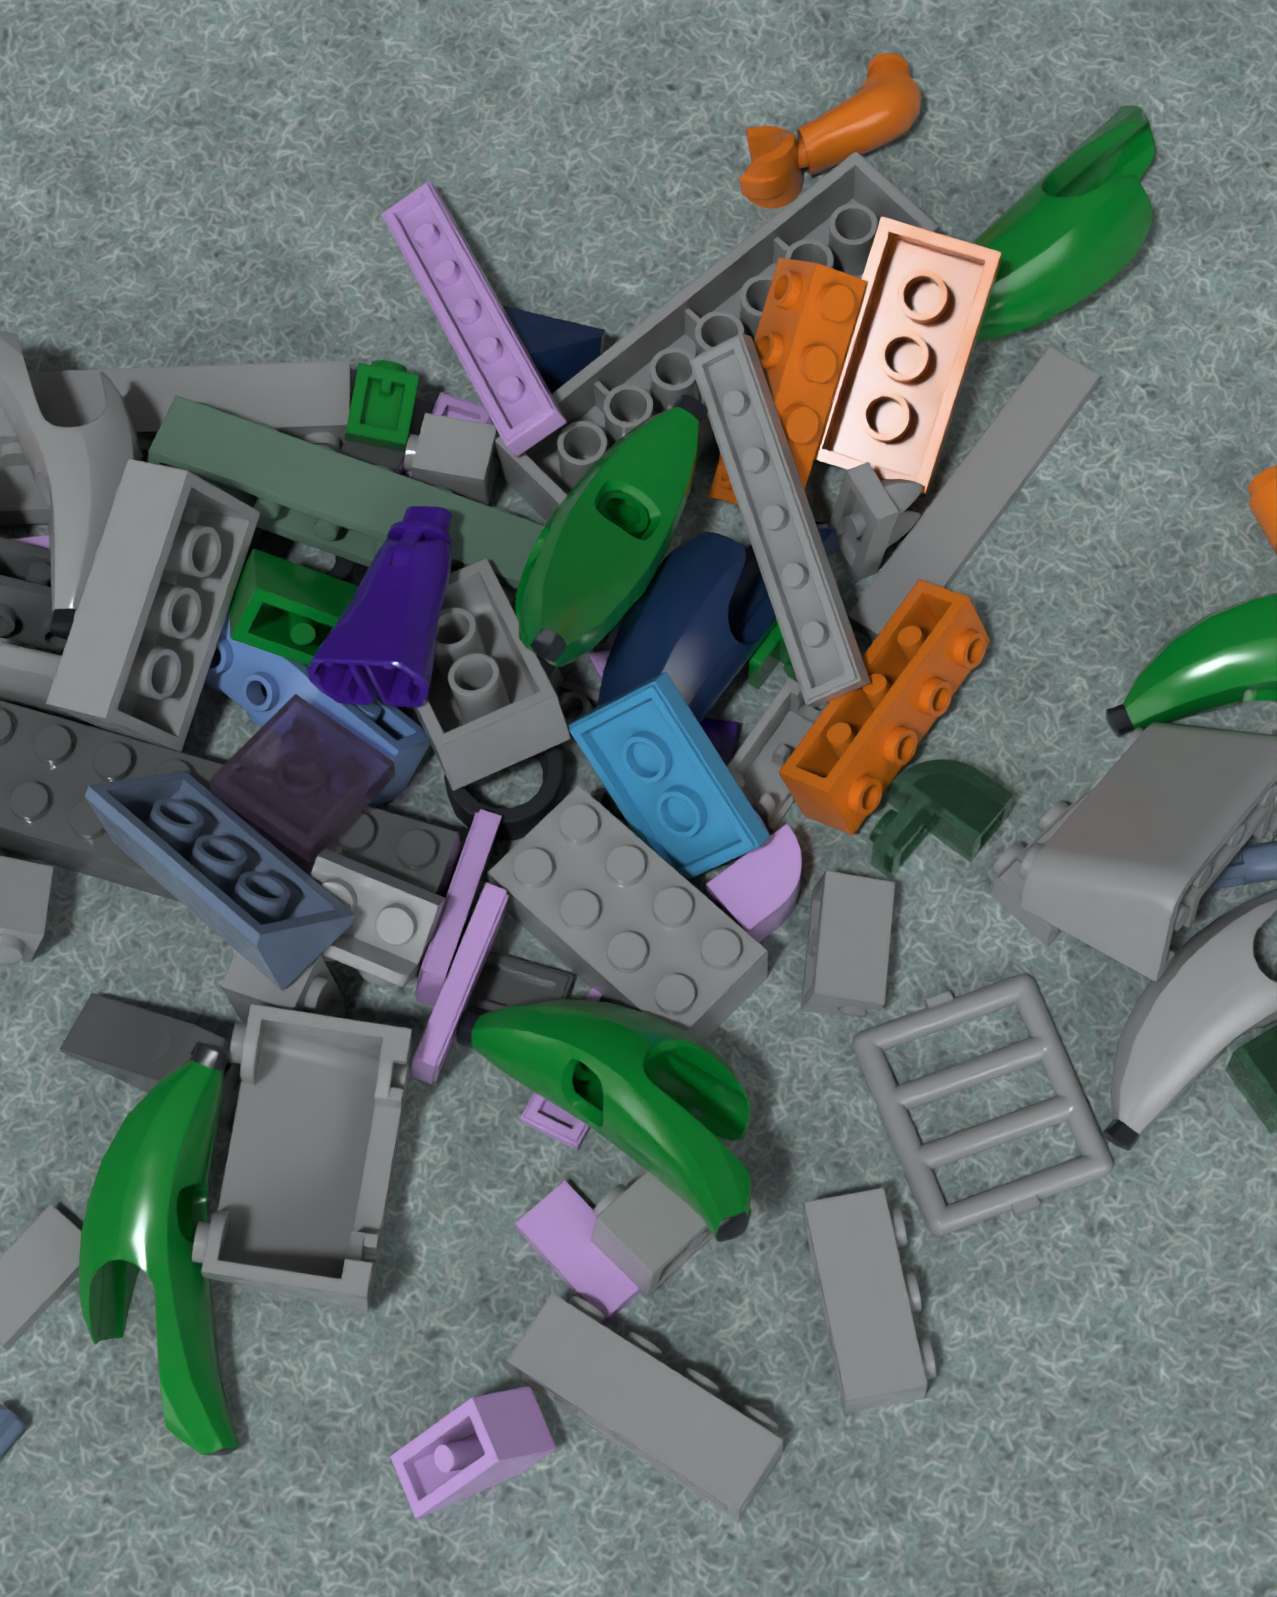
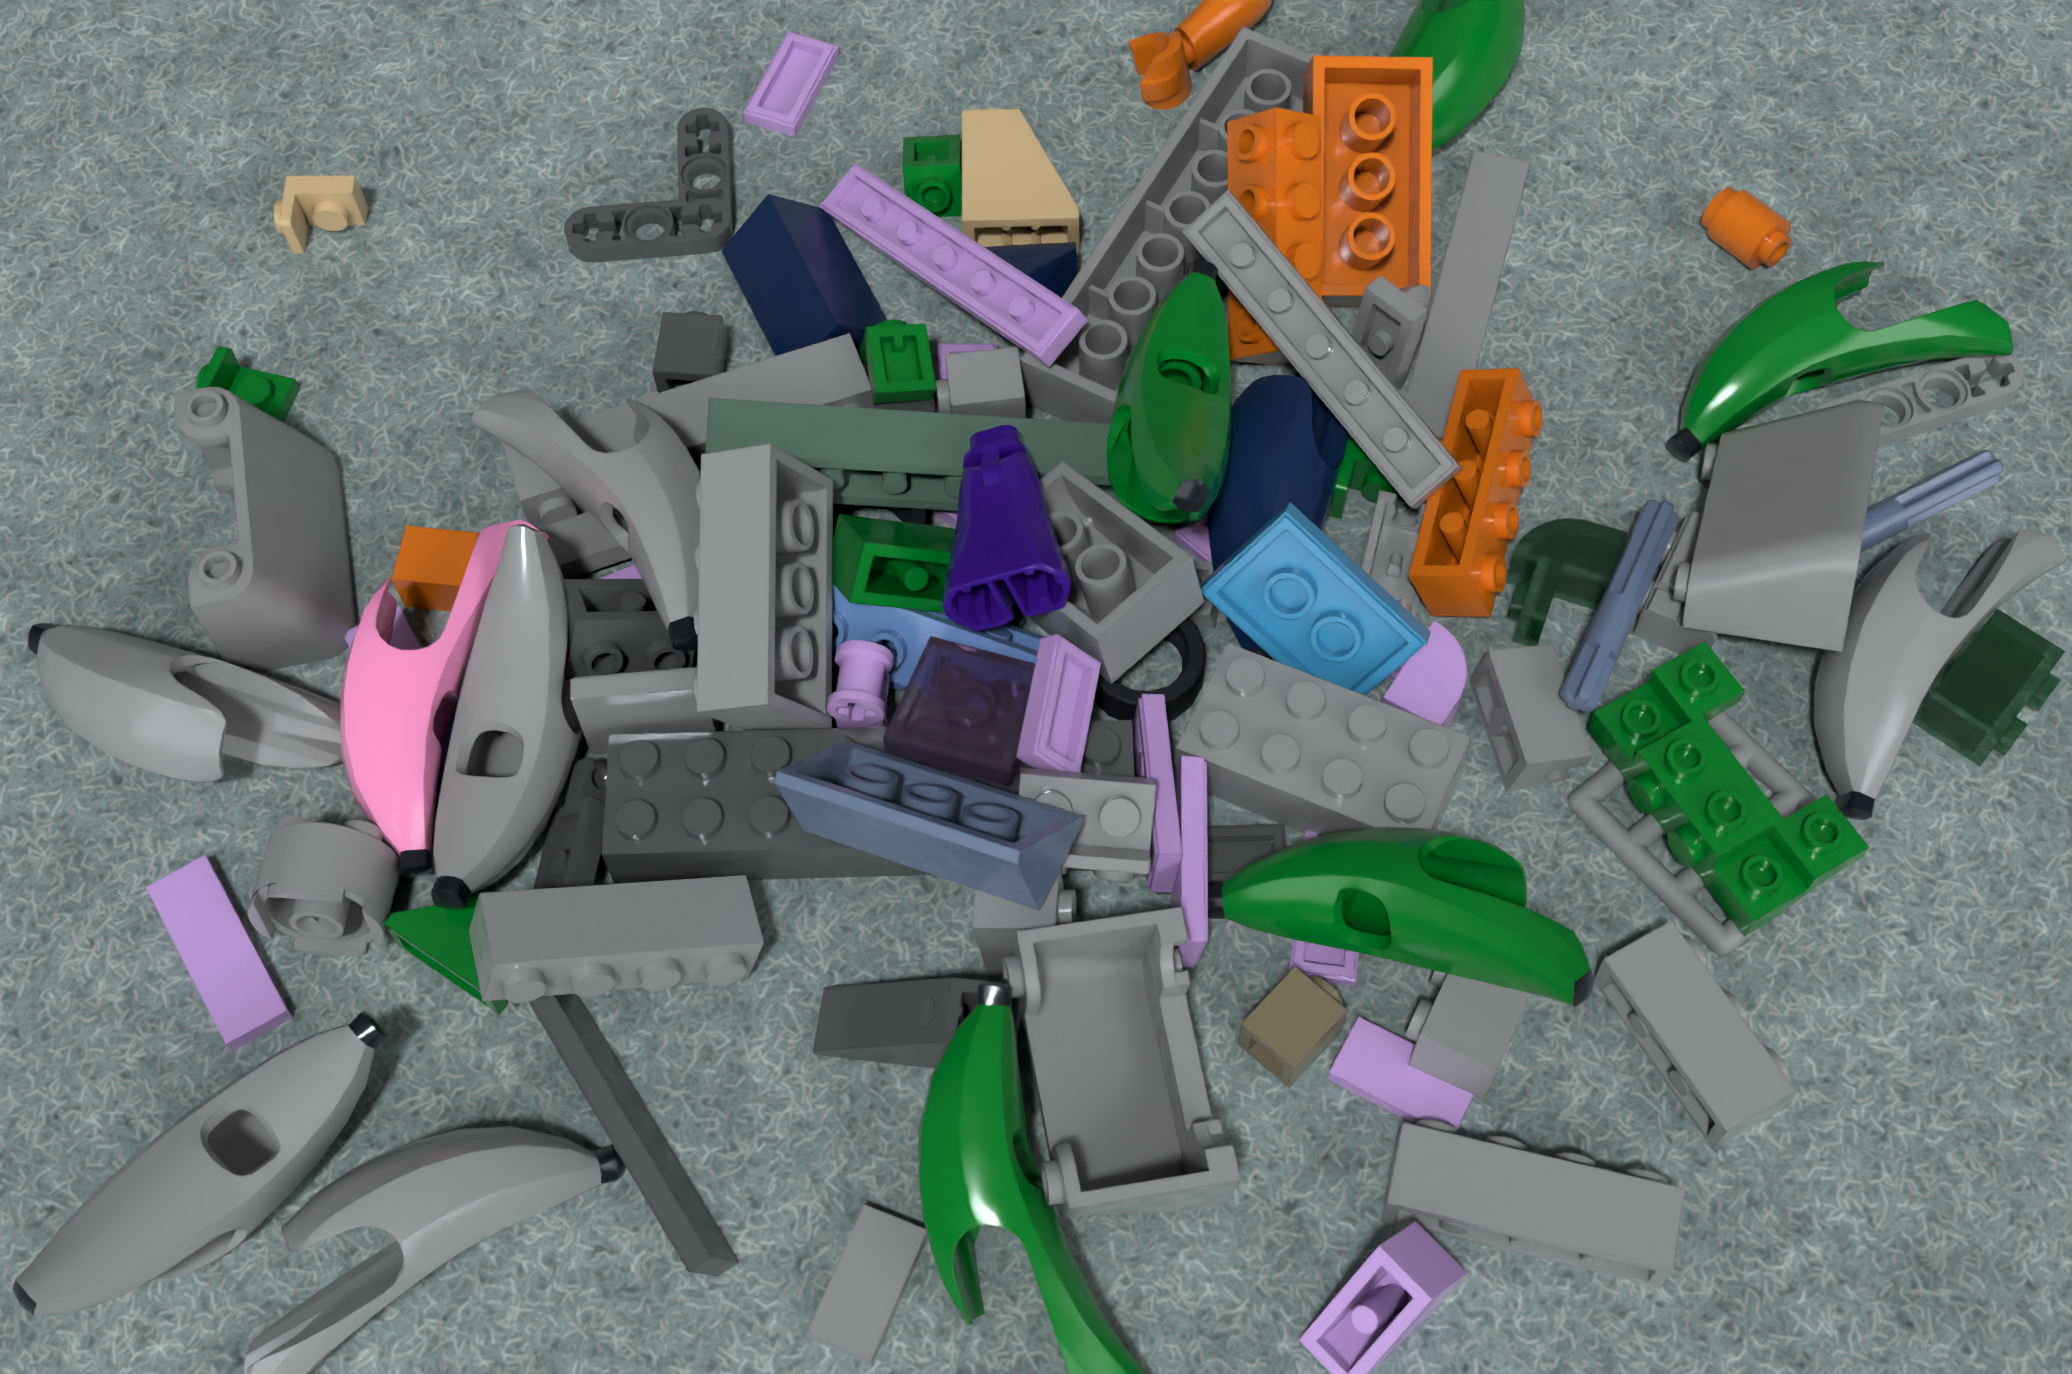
camera: 20 degrees left, 5 degrees down
(198, 330) = (689, 349): none -> dark grey brick
(221, 720) = (861, 685): none -> lavender connector
(258, 179) = (691, 207): none -> dark grey beam
(337, 285) = (800, 276): none -> dark blue slope
(383, 801) = (1058, 706): none -> lavender tile
(405, 74) = (791, 84): none -> lavender tile
(499, 1168) = (1293, 1025): none -> dark tan brick
(501, 213) = (934, 173): none -> green bracket
(567, 250) = (1011, 184): none -> tan slope
(970, 1084) = (1707, 799): none -> green bracket
(971, 865) = (1619, 606): none -> sand blue axle

